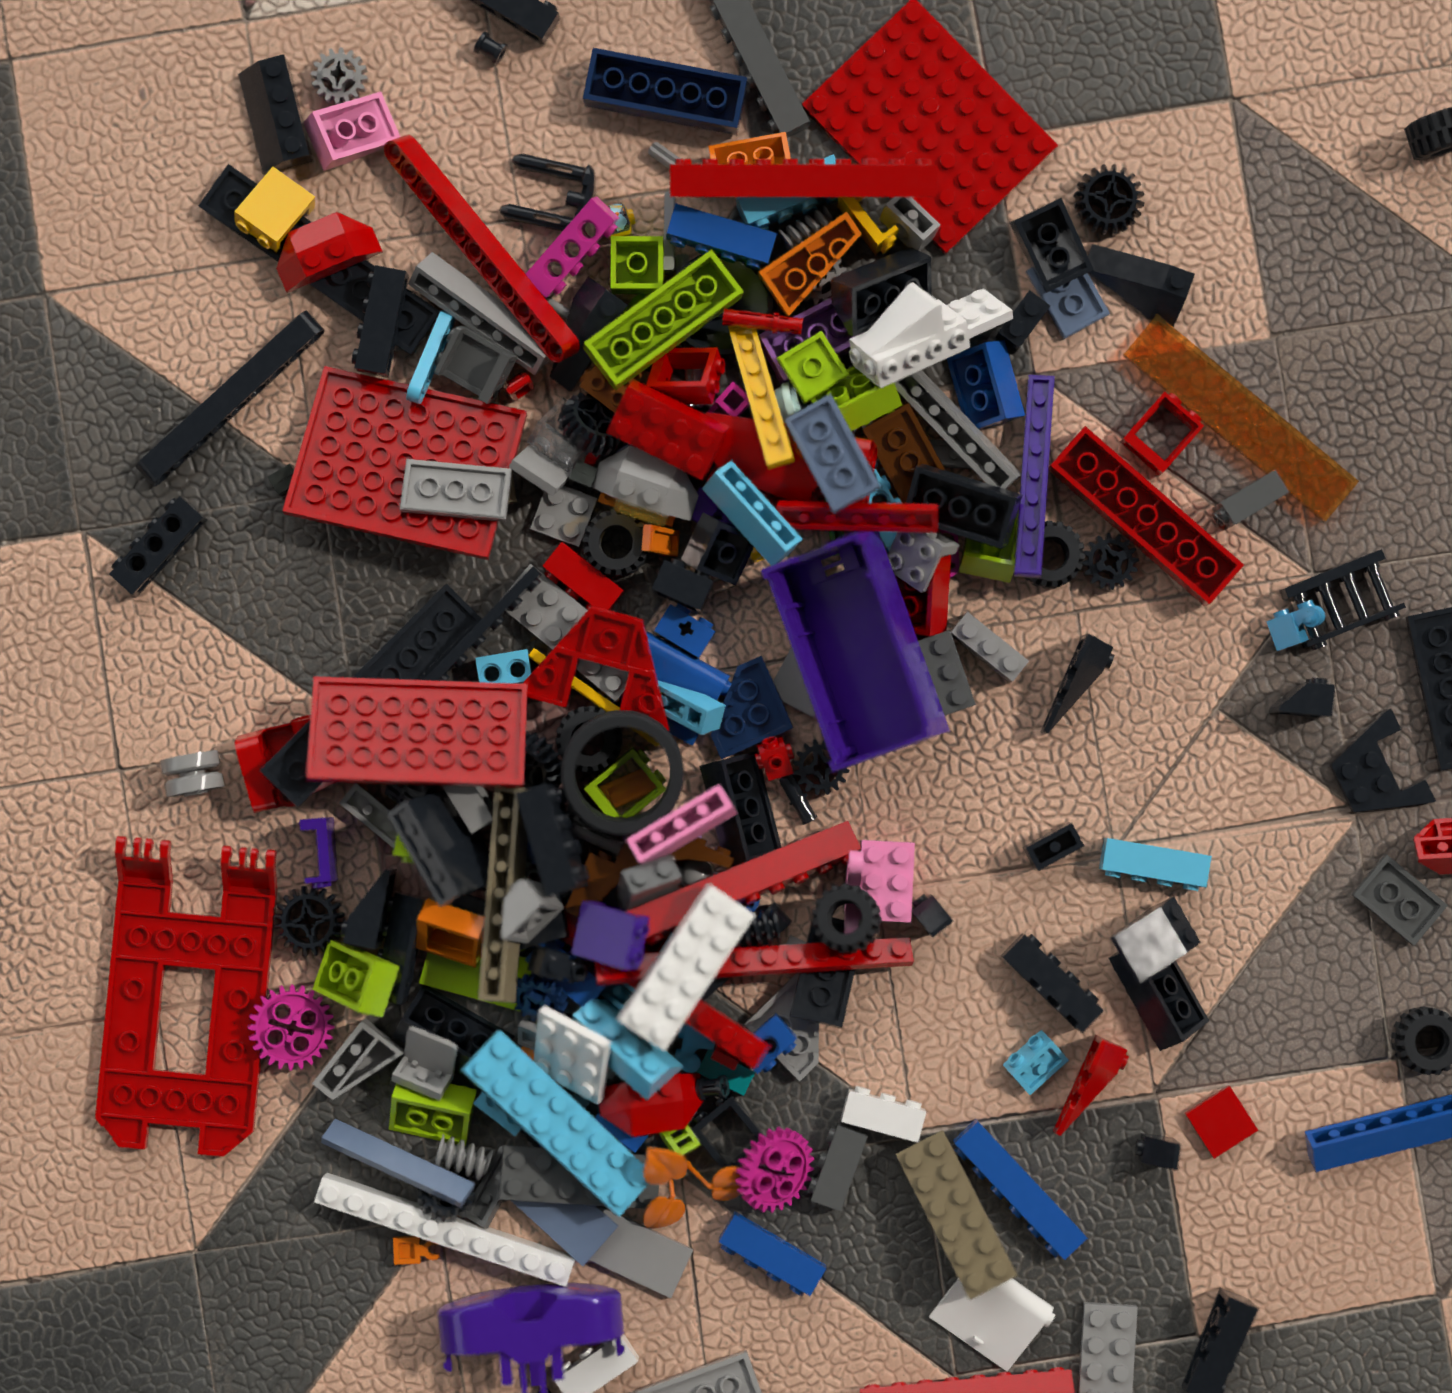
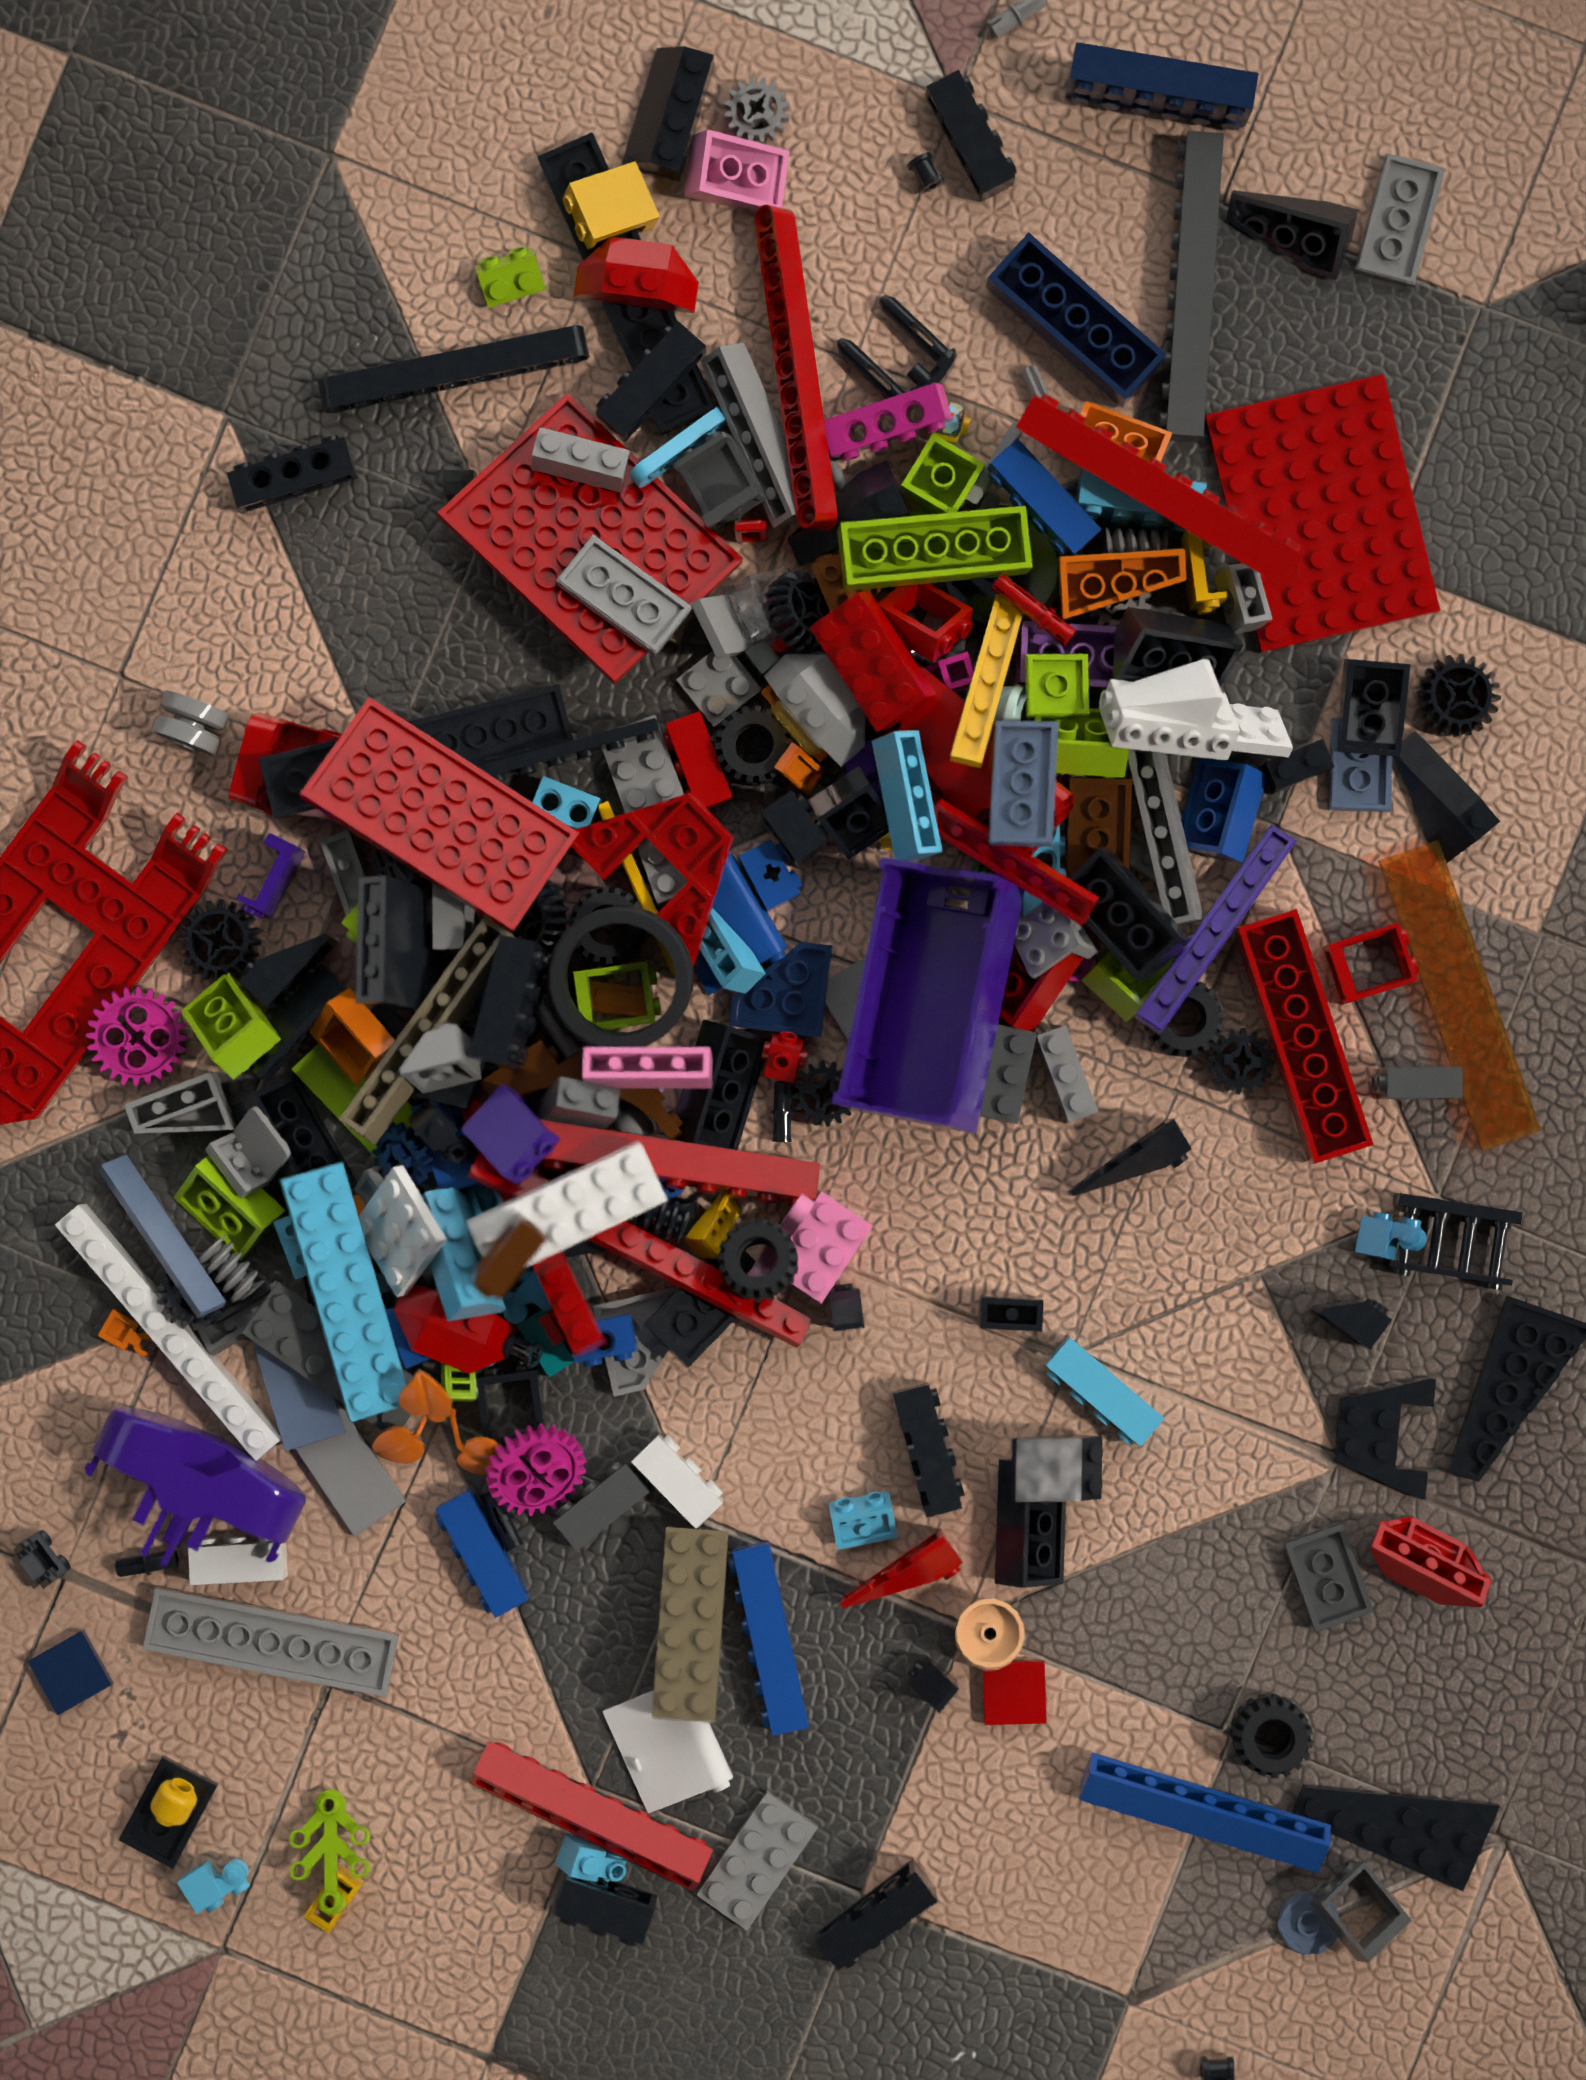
camera: 25 degrees right, 0 degrees up
(230, 305) = (510, 276): none -> lime bracket
(363, 409) = (579, 459): none -> light grey brick
(665, 1027) = (508, 1257): none -> reddish brown window
(772, 1222) = (502, 1522): none -> black pin
(798, 922) = (707, 1233): none -> yellow slope
(1175, 1106) = (986, 1653): none -> light nougat wheel

